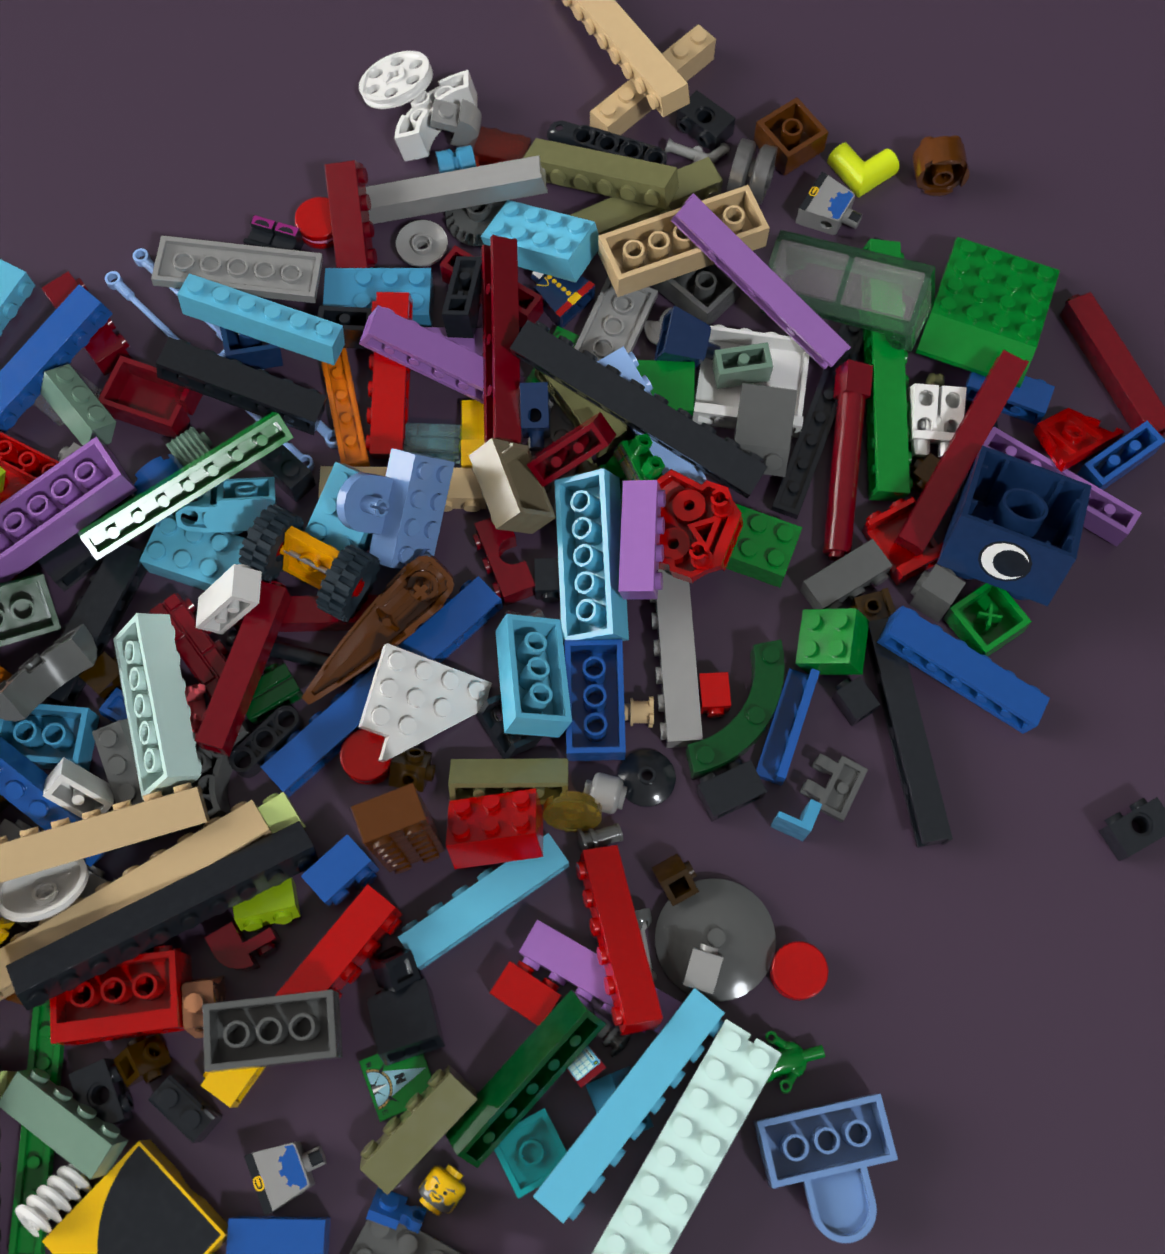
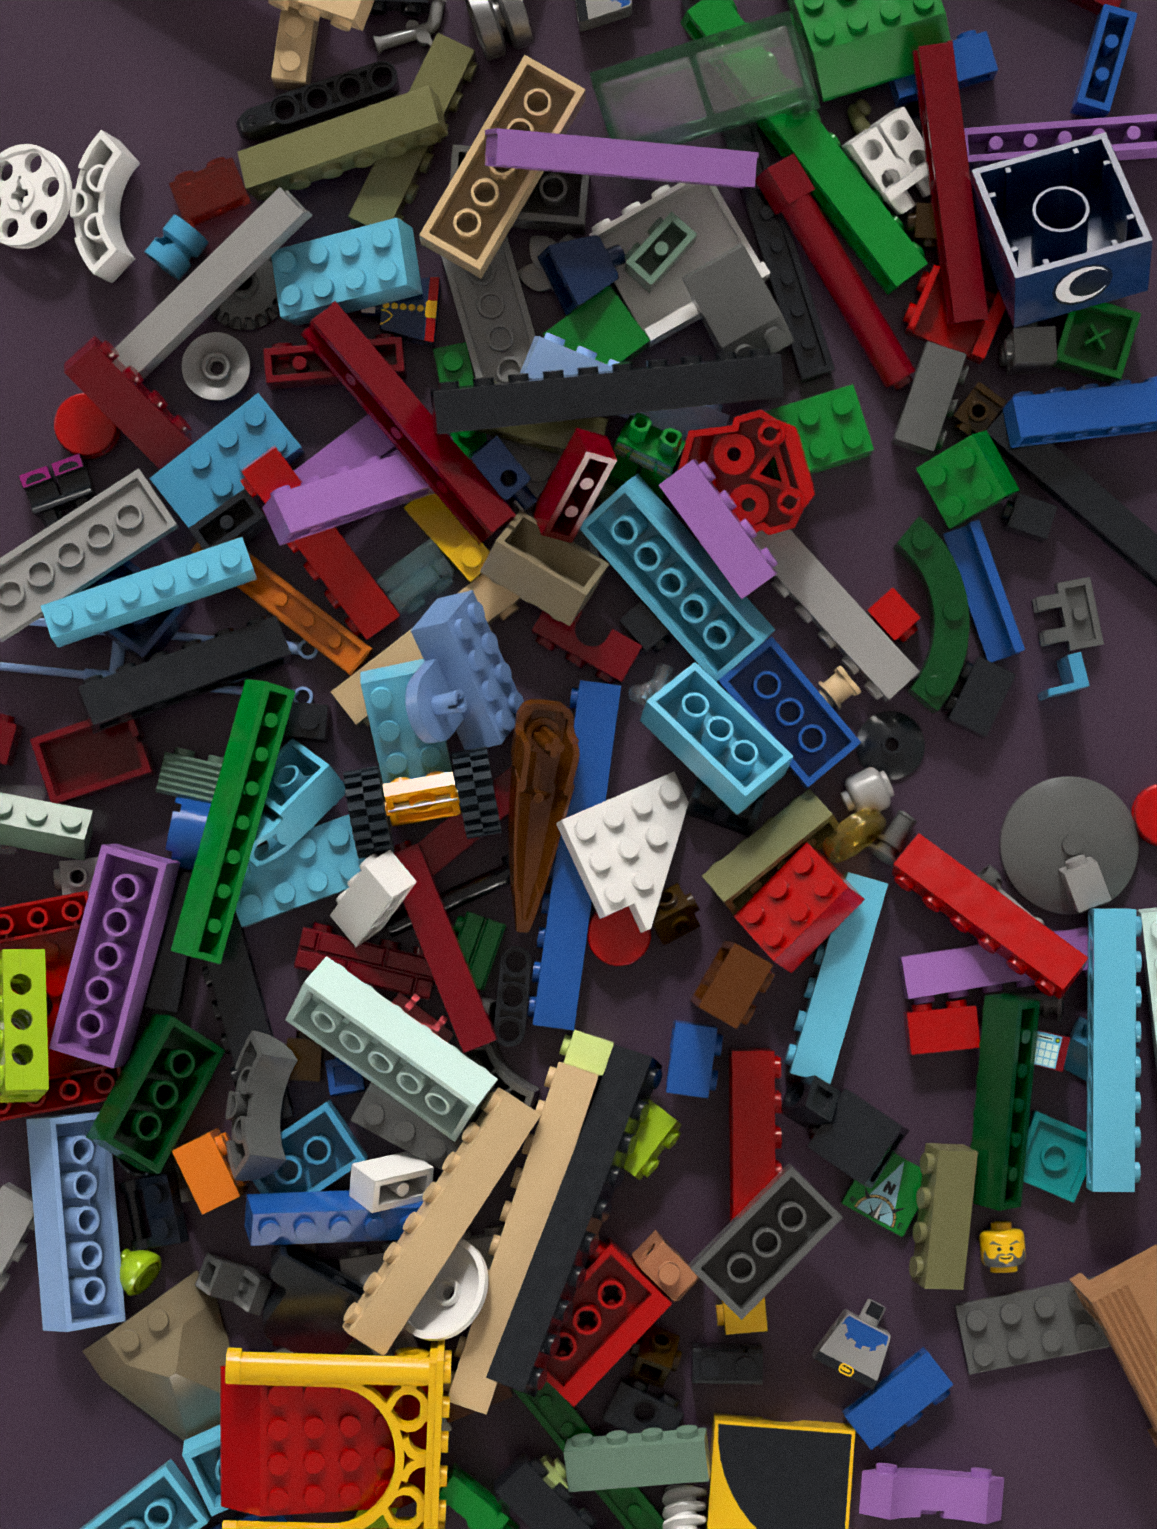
camera: 40 degrees left, 15 degrees up
(236, 952) = (652, 1202): dark red brick -> none
(392, 1209) = (977, 1298): blue plate -> none
(461, 120) = (141, 197): light grey brick -> none
(463, 298) = (325, 401): black slope -> none
(676, 879) = (995, 820): dark brown brick -> none
(1073, 437) = (1042, 73): red wing -> none

